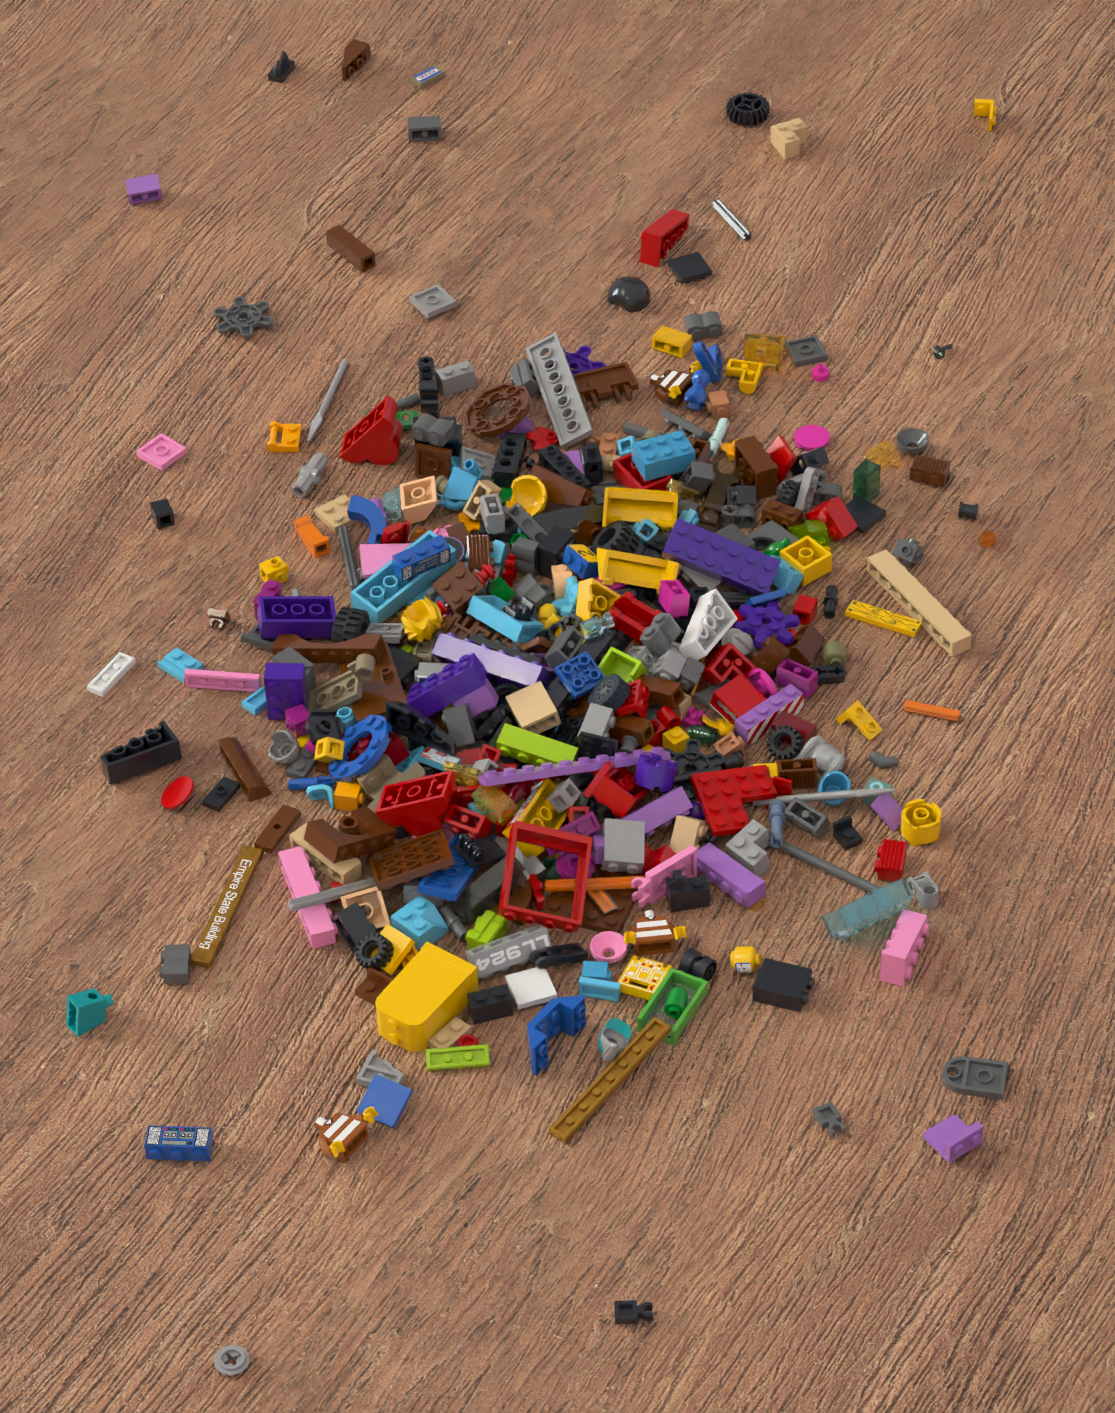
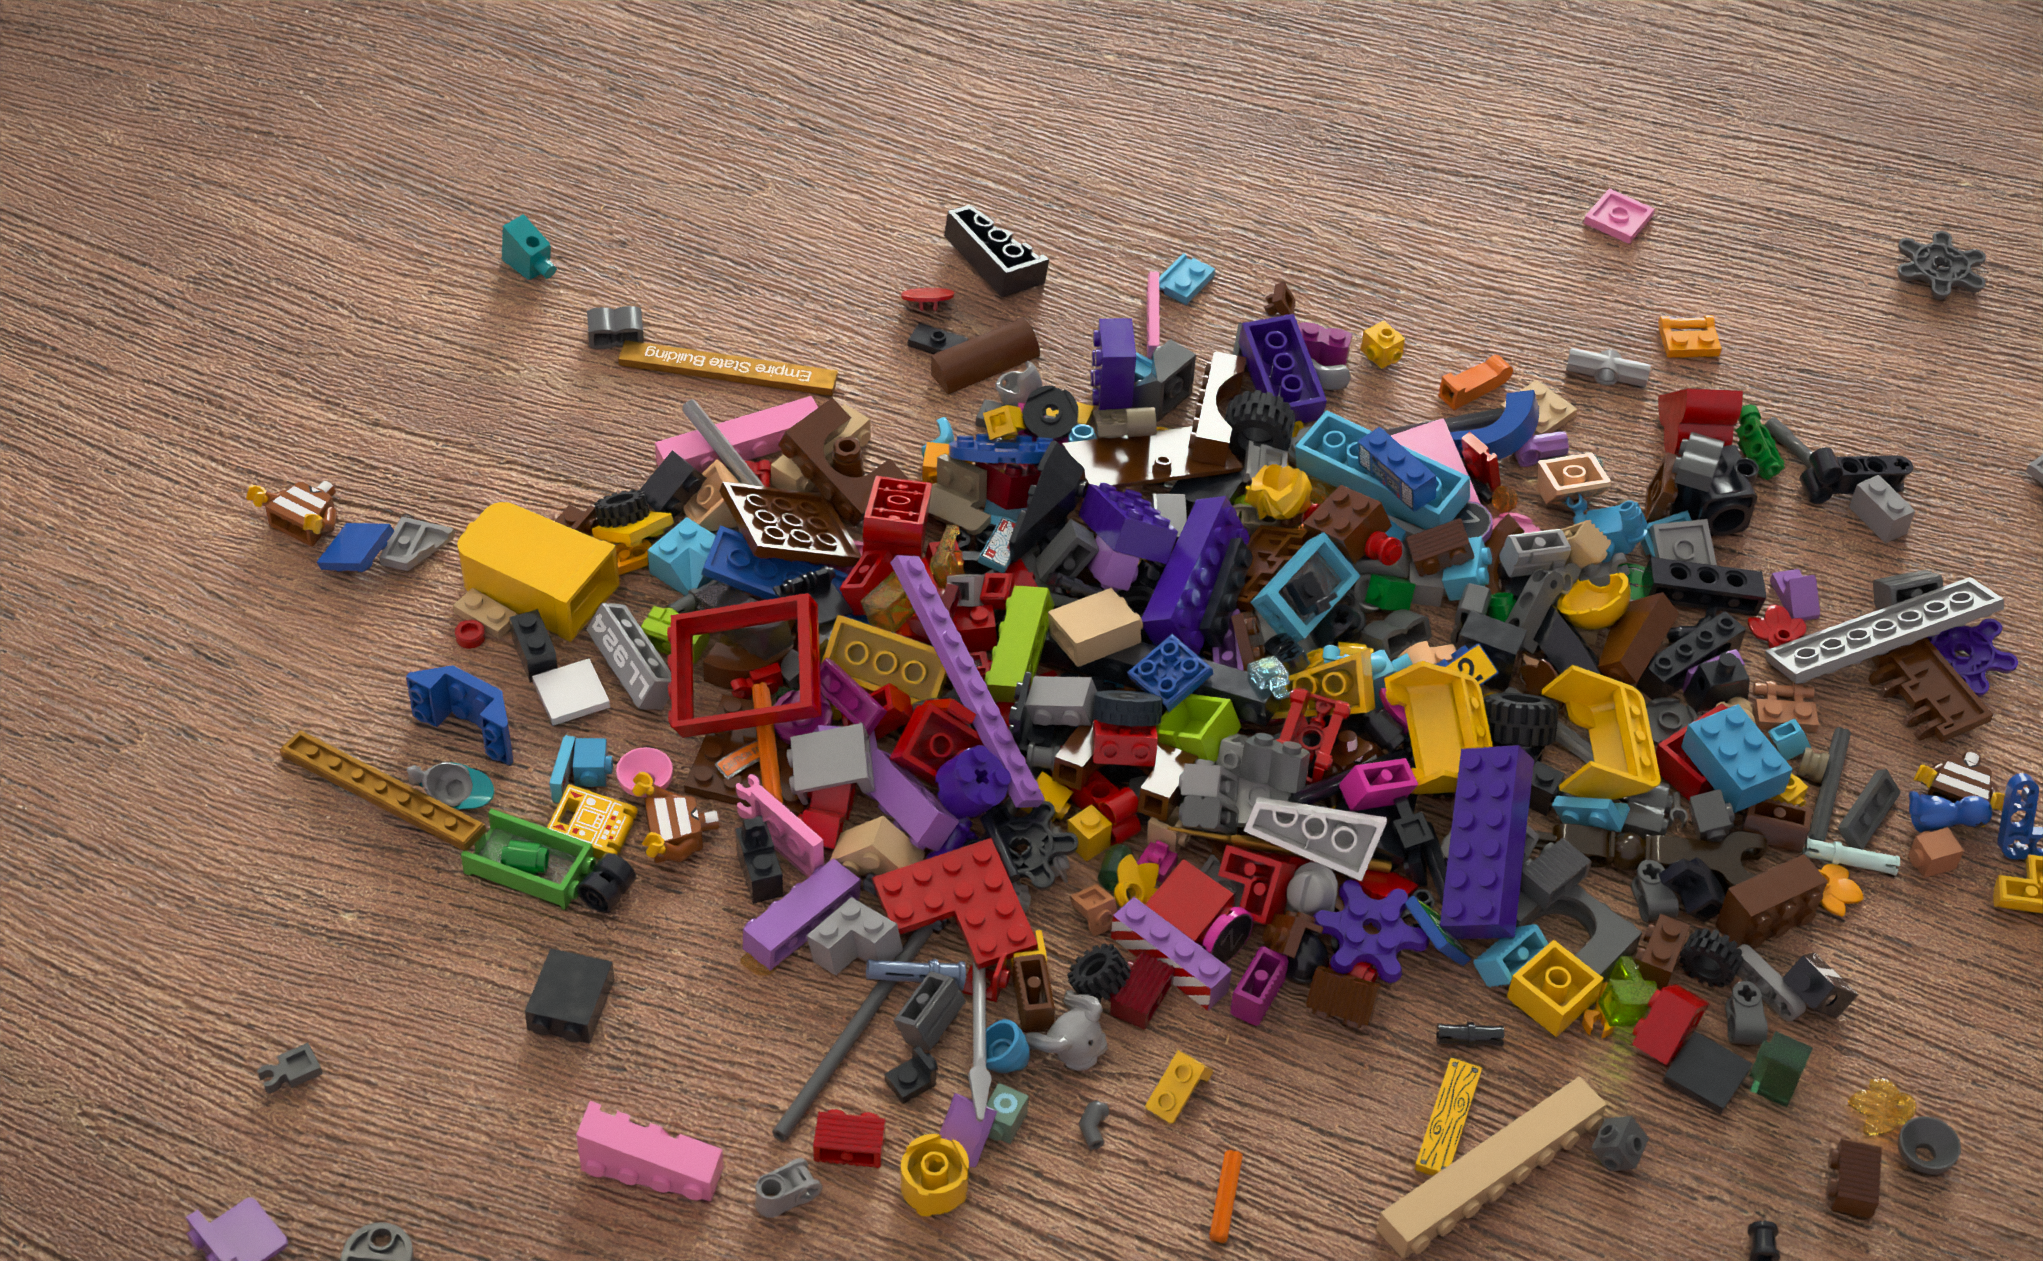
camera: 80 degrees right, 5 degrees up
(111, 674) = (1156, 216): white tile -> none
(162, 513) = (1481, 225): black brick -> none
(178, 1143) = (302, 360): brick -> none
(277, 828) = (872, 400): reddish brown tile -> none
(296, 720) = (1080, 388): magenta brick -> none
(304, 783) = (964, 419): blue piece -> none
(319, 417) = (1800, 376): light grey piece -> none
(457, 1057) = (440, 622): lime tile -> none
(507, 391) = (1852, 558): reddish brown plate -> none
(510, 572) = (1442, 604): red plate -> none
(558, 955) = (627, 715): black hinge -> none
(564, 647) = (1228, 649): dark grey brick -> none
(564, 795) = (909, 679): light grey brick -> none
(647, 526) = (1568, 757): medium azure brick -> none
(677, 486) = (1675, 794): clear yellow plate -> none
(733, 761) = (1059, 909): black bush -> none
(745, 959) = (622, 943): yellow head -> none
(774, 548) = (1570, 940): green plant -> none
(783, 456) = (1802, 939): red tile -> none
(805, 609) = (1438, 996): red brick -> none
(807, 490) = (1729, 967): light grey beam -> none
(811, 437) = (1897, 996): dark pink tile -> none
(828, 673) = (1297, 1037): black beam -> none
(834, 653) = (1336, 1043): olive head -> none
(868, 909) = (717, 1095): clear light blue brick -> none

